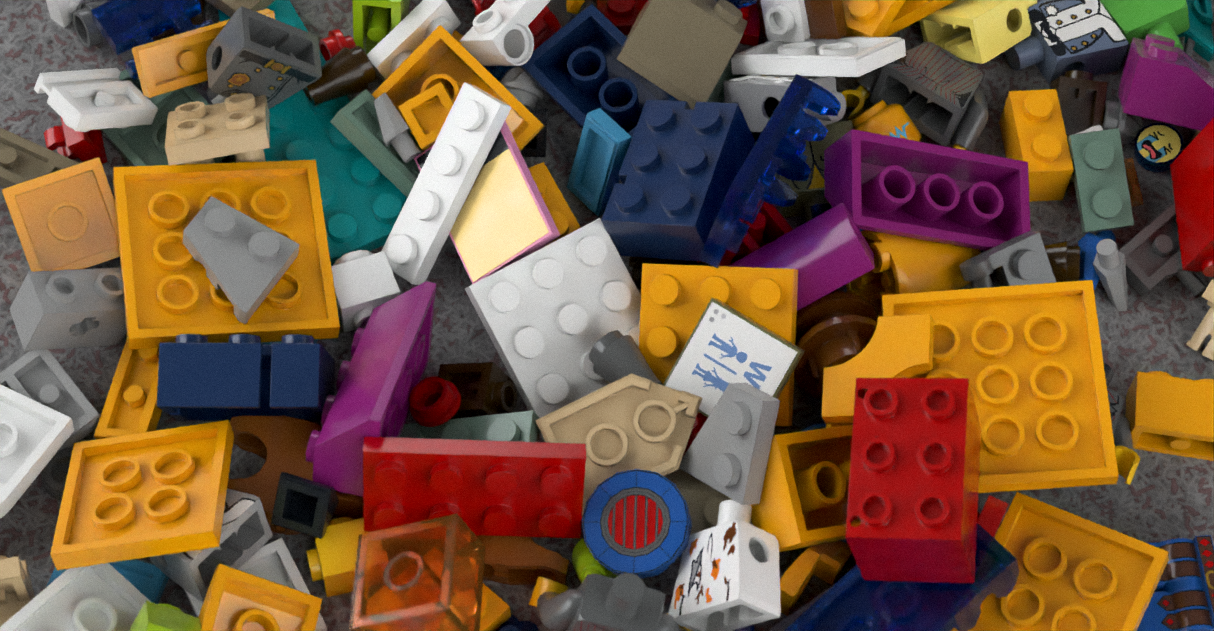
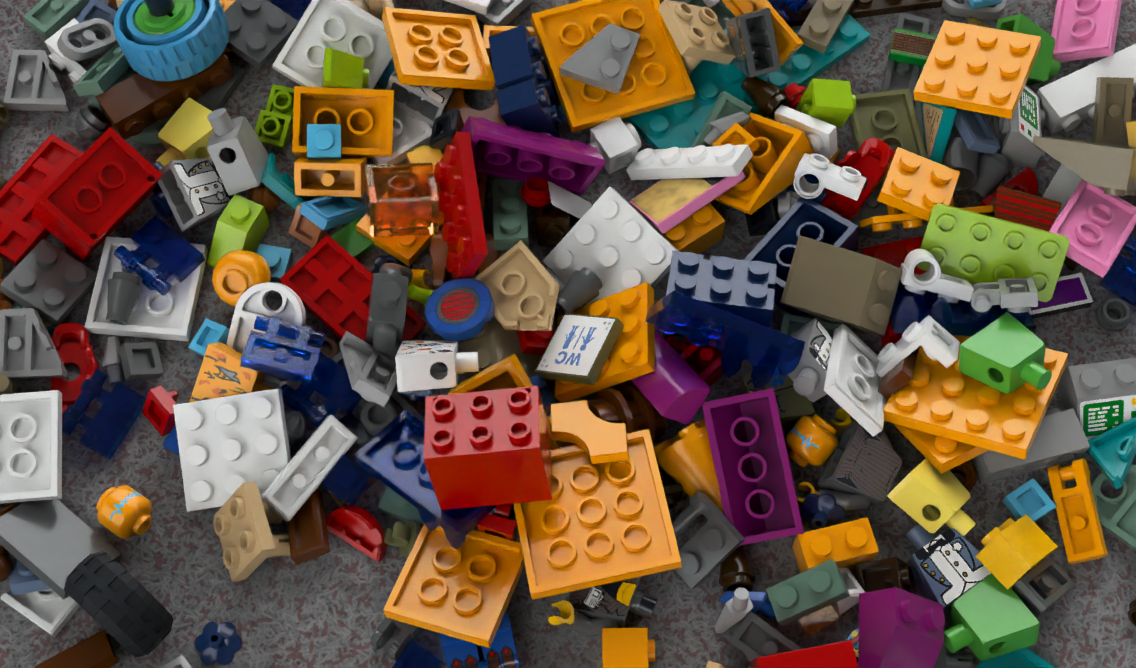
camera: 85 degrees right, 5 degrees up
(460, 360) = (568, 201): none -> white sticker
(598, 160) = (745, 246): dark azure tile -> none
(735, 443) = (513, 346): light grey wing -> none
(986, 140) = (821, 511): none -> dark blue plant

